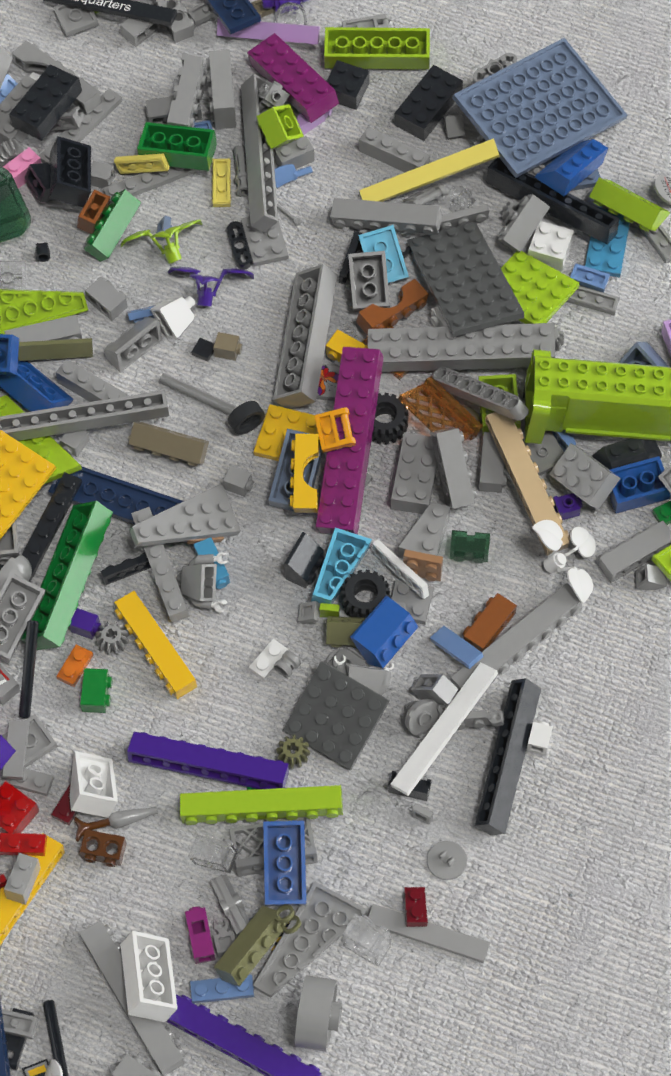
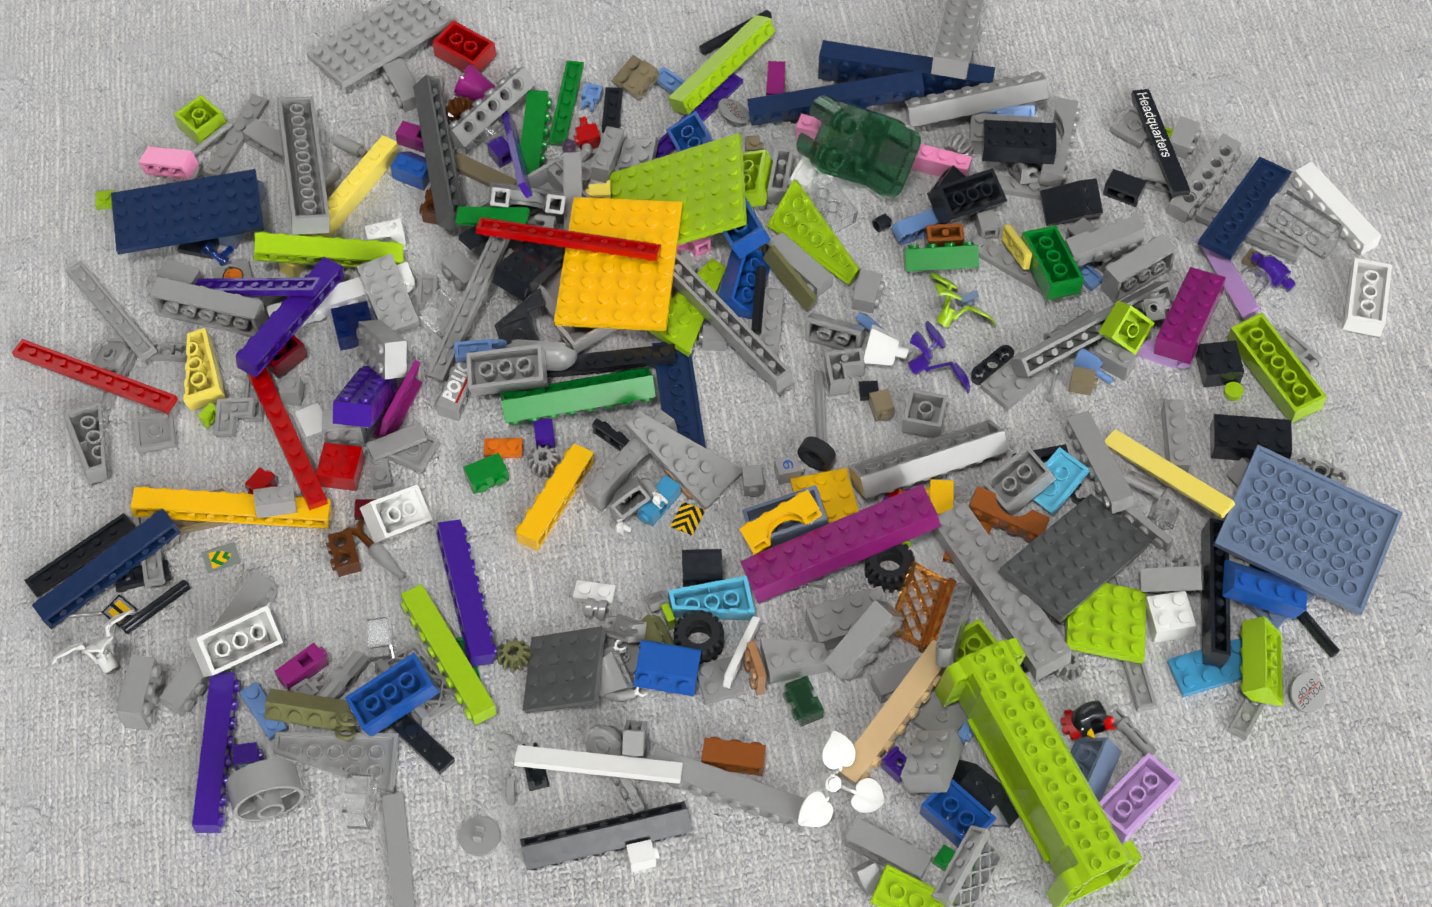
camera: 60 degrees right, 5 degrees down
(28, 669) = (472, 410): black axle -> none
(36, 960) = (221, 557): none -> light grey sticker
(57, 383) = (758, 303): none -> black axle
(66, 226) = (914, 226): none -> medium blue beam
(123, 100) = (1071, 202): none -> black slope
(133, 56) = (1124, 188): none -> black brick
(169, 443) = (754, 408): dark tan brick -> none
(172, 358) = (840, 366): none -> light grey brick
(221, 182) = (1047, 319): light yellow tile -> none
(239, 551) = (687, 518): none -> sticker
(243, 448) = (787, 468): none -> light grey brick
(258, 317) = (924, 413): none -> light grey brick
(263, 1020) = (246, 754): none -> dark purple brick
(299, 188) = (1082, 381): none -> dark tan brick
(321, 870) = (422, 743): none -> black plate
(326, 647) = (626, 628): none -> light grey hinge
(328, 430) = (831, 516): light orange plate -> none
(375, 91) = (1233, 391): none -> lime tile
(415, 907) = (417, 829): dark red plate -> none
(456, 647) = (691, 738): medium blue tile -> none
(590, 277) = (1159, 668): medium blue plate -> none
(606, 348) = (1086, 721): none -> black piece
(623, 328) = (1124, 724): none -> light grey pin
(628, 155) = (1319, 634): none -> black axle

